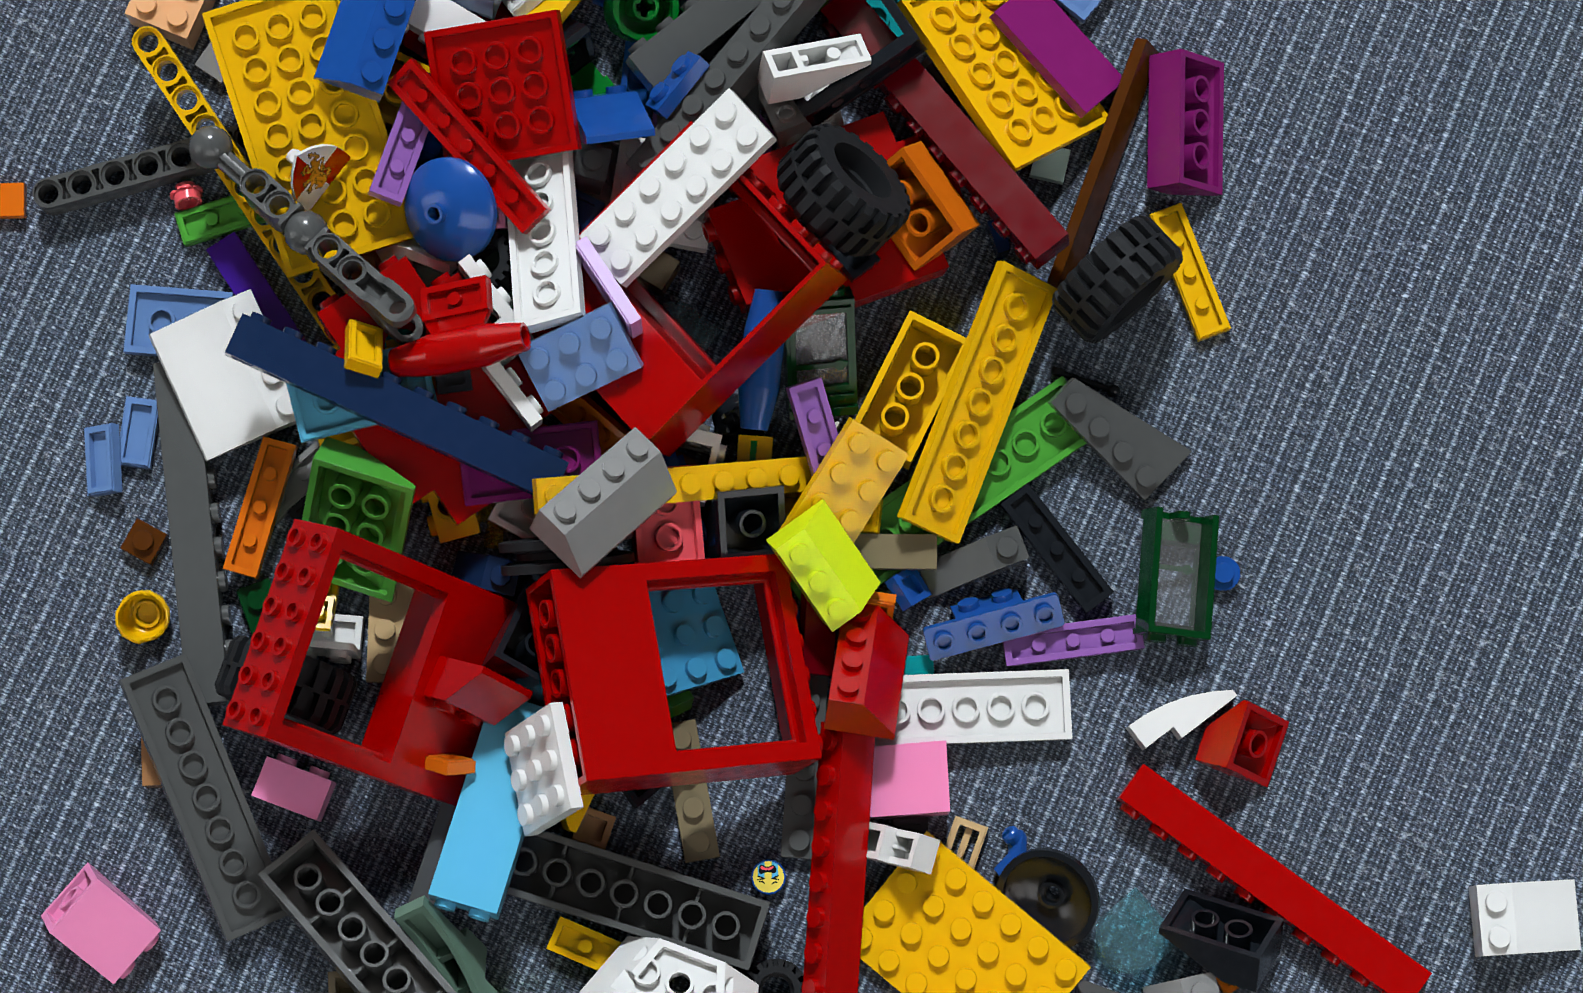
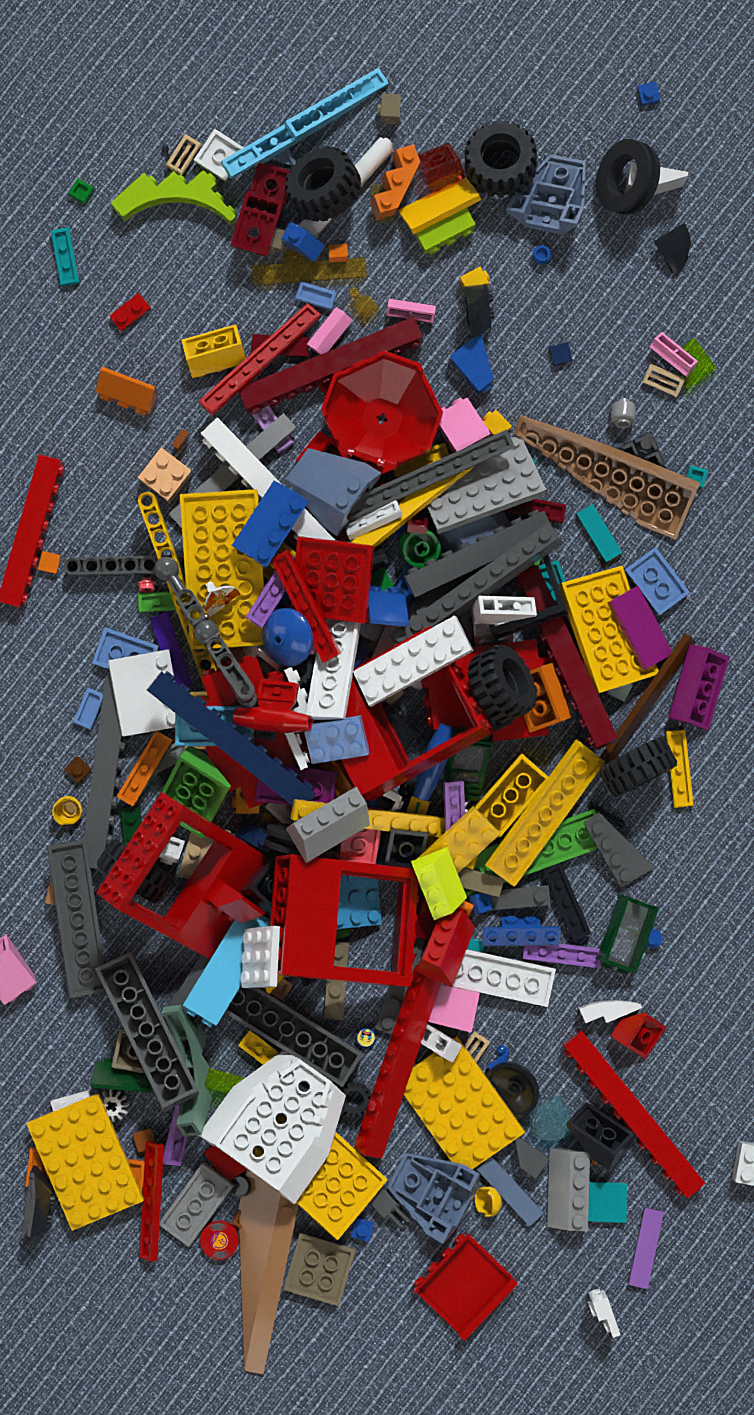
camera: 15 degrees right, 5 degrees up
(103, 460) = (66, 719): medium blue tile -> none
(294, 788) = (125, 926): bright pink brick -> none
(363, 348) = (221, 705): yellow tile -> none
(450, 764) = (211, 938): orange tile -> none
(609, 287) = (361, 706): tile -> none
(670, 92) = (427, 599): blue plate -> none

